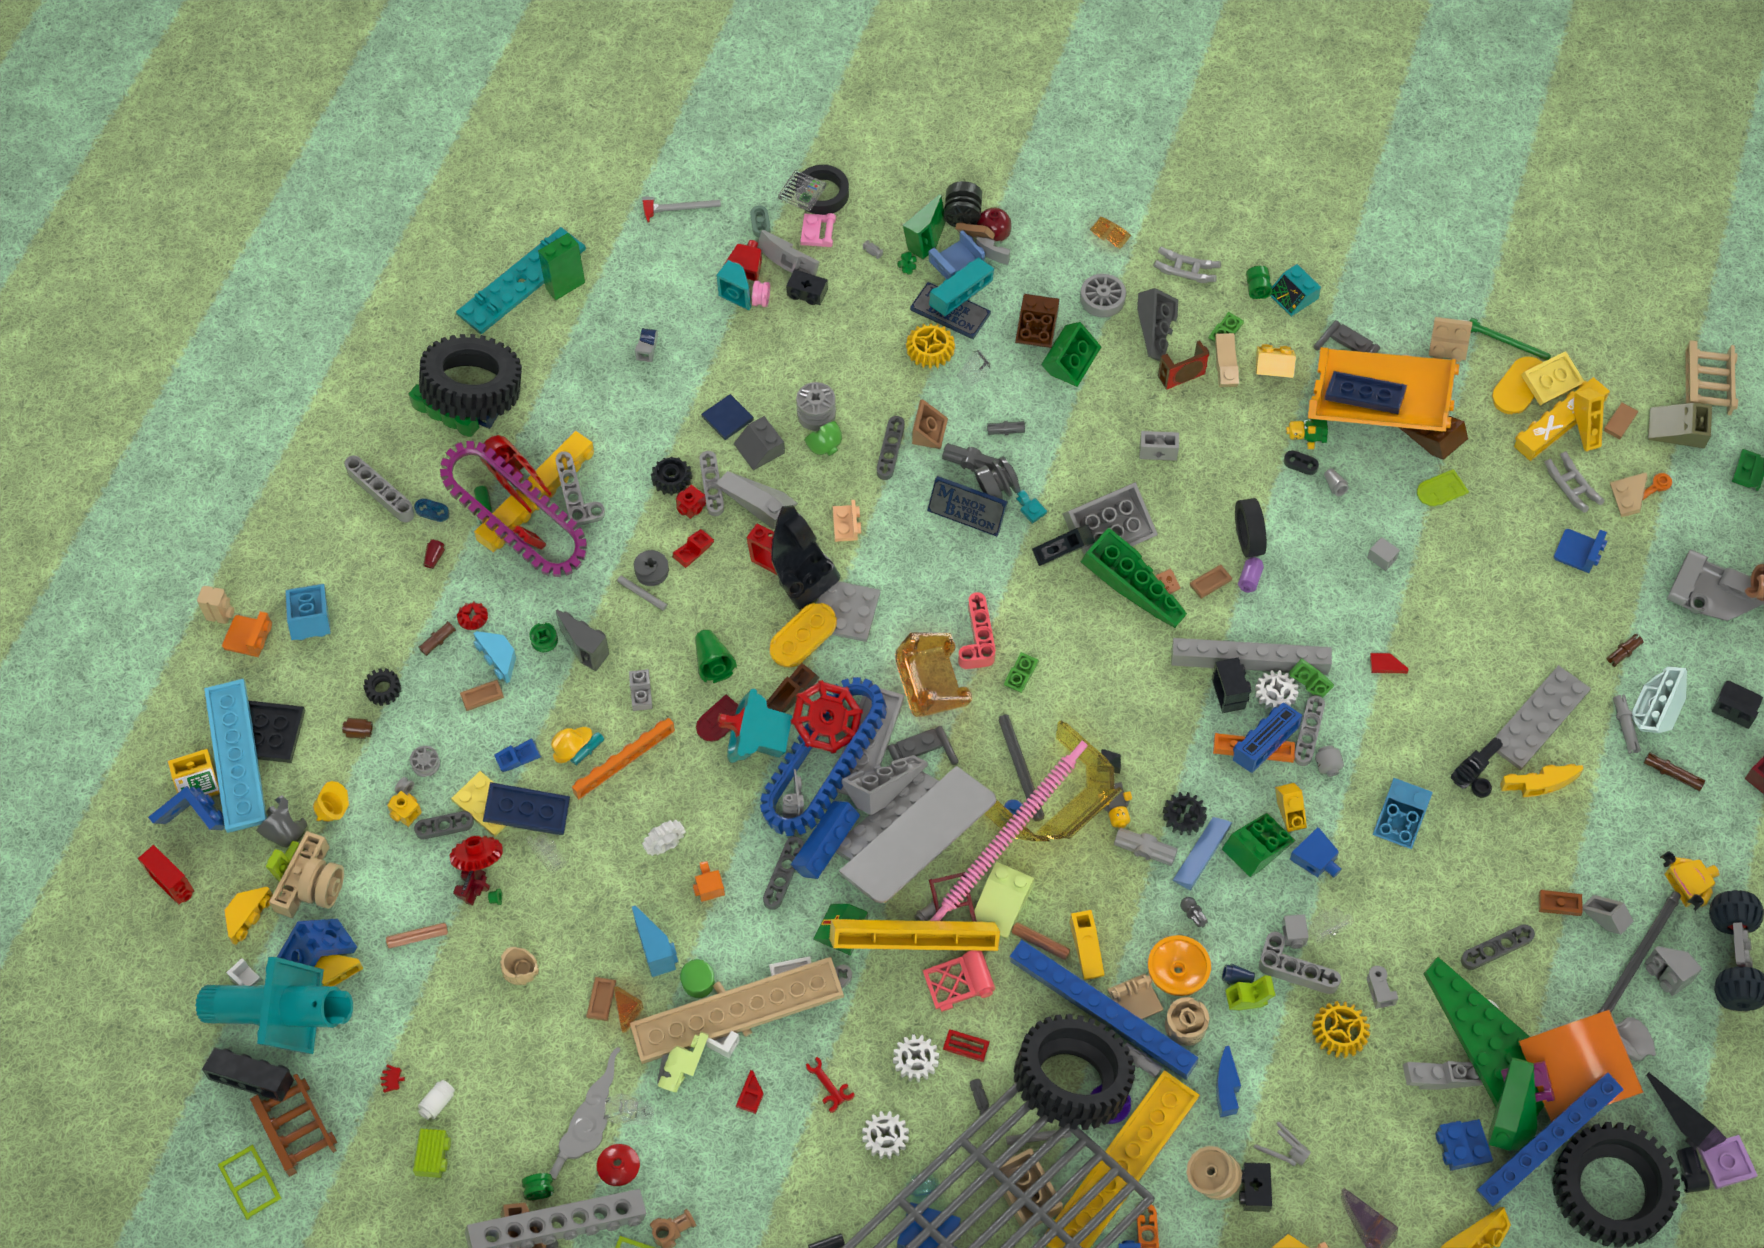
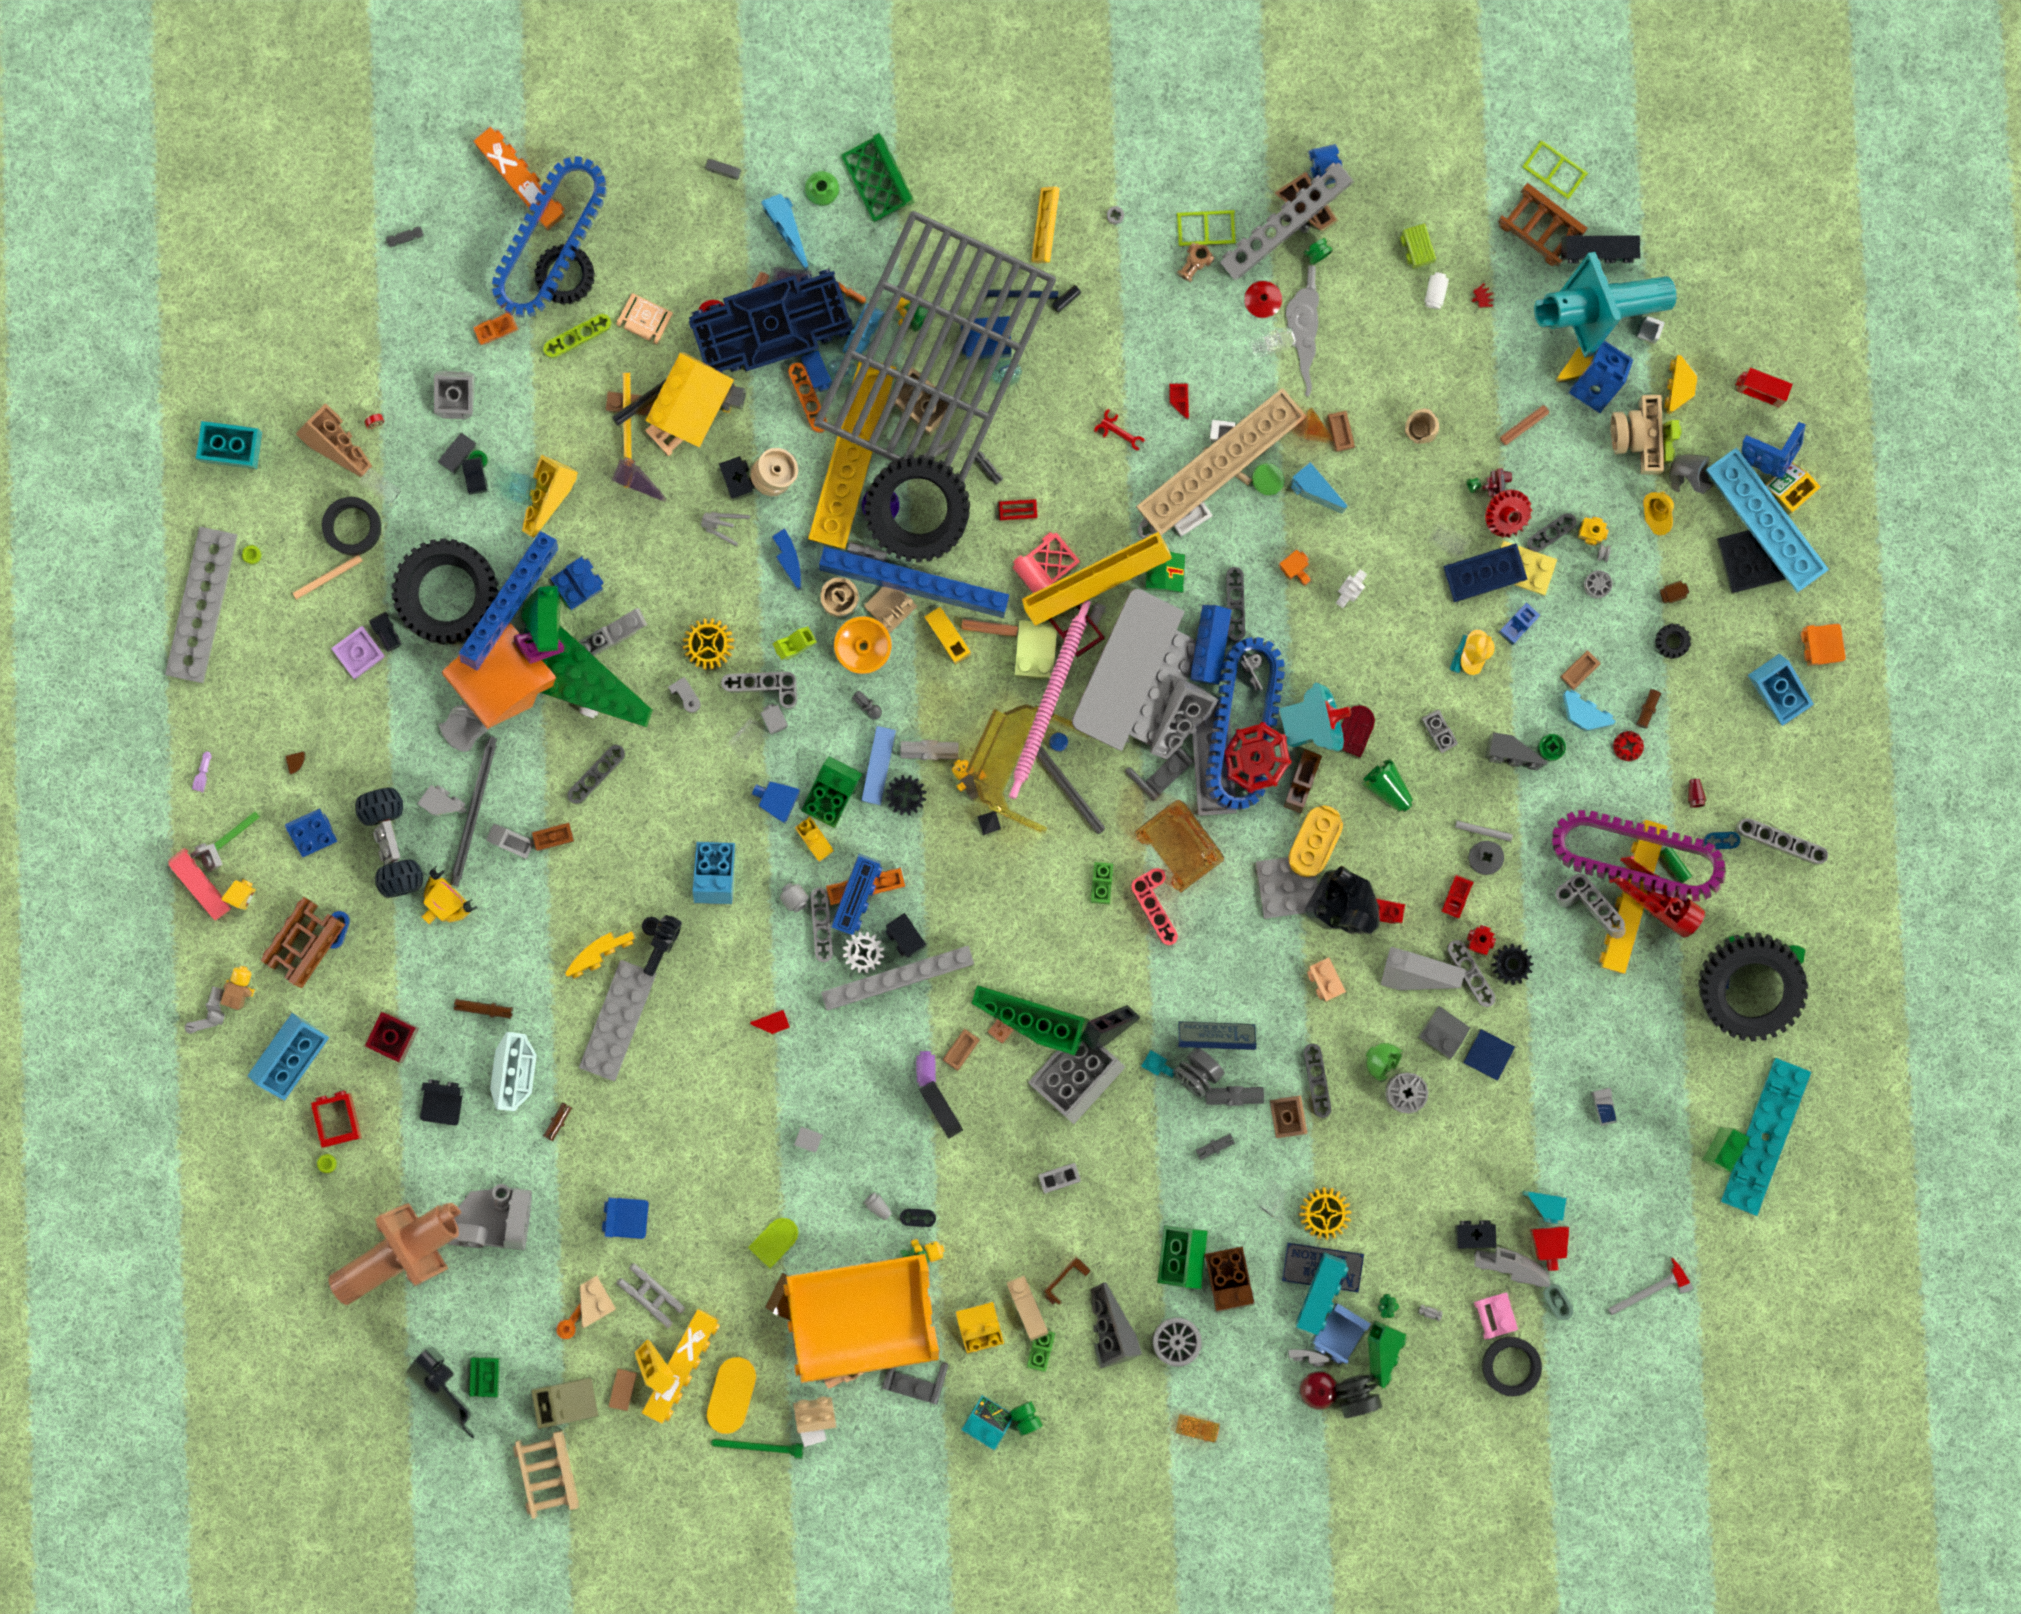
camera: 160 degrees right, 25 degrees up
(215, 604) = (1865, 656): tan brick -> none
(530, 537) = (1615, 834): red tile -> none
(622, 759) = (1420, 663): orange plate -> none
(680, 1062) = (1247, 396): yellowish green plate -> none
(761, 294) = (1517, 1208): bright pink wheel -> none
(802, 190) = (1529, 1349): clear tile -> none
(877, 1129) = (1052, 412): white gear -> none
(920, 1049) = (1043, 476): white gear -> none
(975, 230) = (1334, 1369): medium nougat tile -> none
(1193, 275) = (1097, 1423): light grey piece -> none
(1234, 974) = (813, 659): dark blue cone -> none
(1312, 678) = (832, 974): bright green slope -> none
(1365, 392) = (879, 1317): dark blue tile -> none
(1552, 378) = (701, 1410): light yellow plate -> none
(1624, 717) = (537, 1042): light grey pin -> none
(1692, 1124) = (395, 667): black wedge -> none

